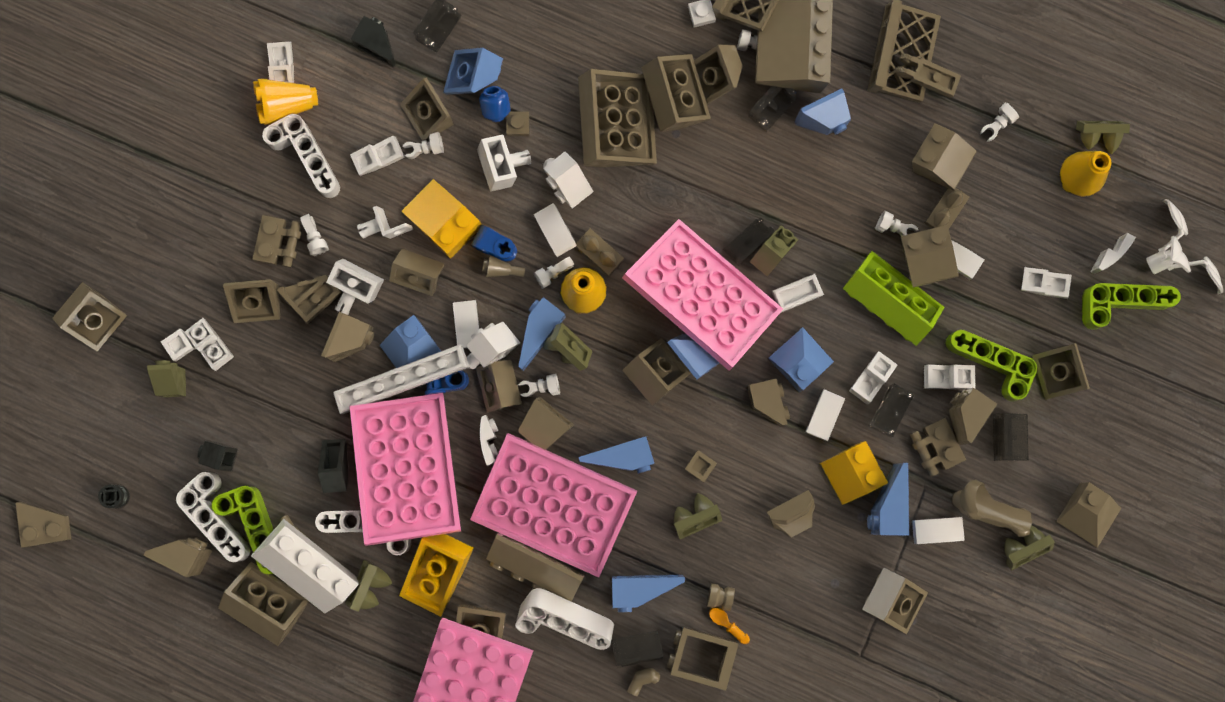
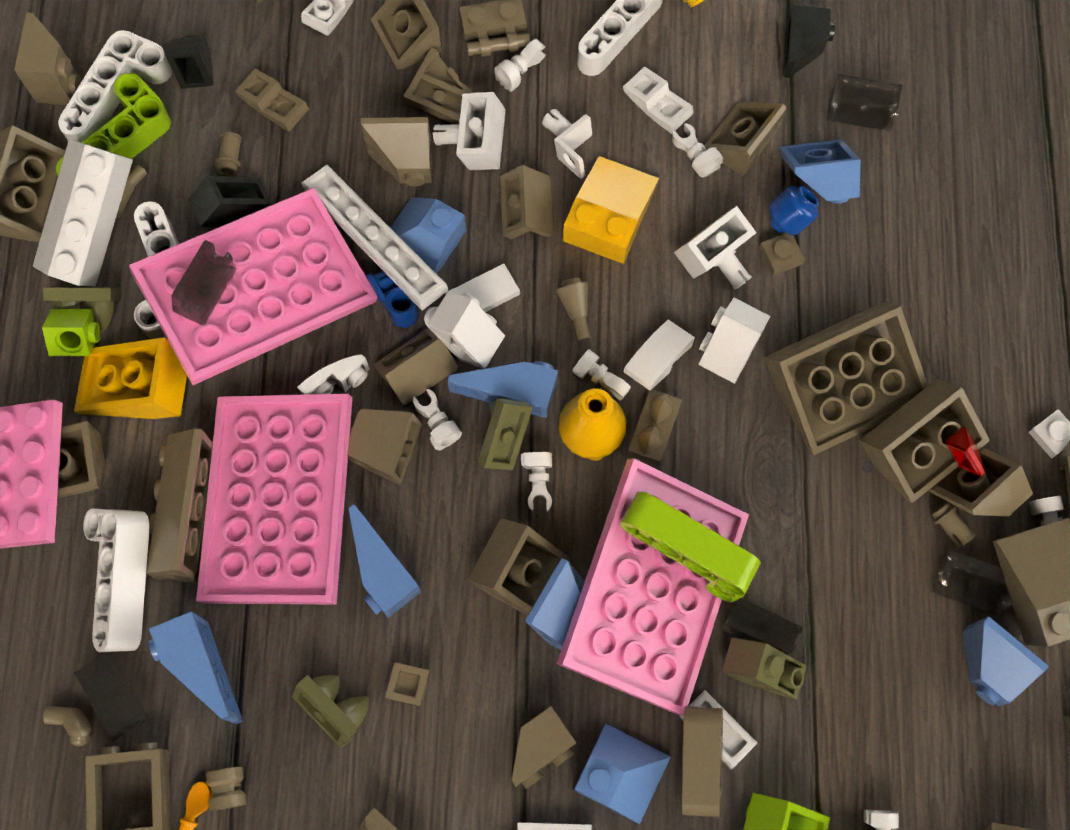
camera: 70 degrees right, 10 degrees down
(268, 412) = (271, 100): none -> dark tan slope
(297, 454) = (227, 162): none -> dark tan pin
(387, 600) = (70, 332): none -> lime brick
(398, 499) = (203, 284): none -> clear smoke hinge
(491, 242) = (604, 283): blue piece -> none
(595, 333) = (538, 463): none -> white piece
(695, 72) = (965, 451): none -> red slope
(706, 250) = (692, 545): none -> lime beam
(733, 100) = (953, 524): none -> dark tan pin
(814, 309) = (702, 761): none -> dark tan beam

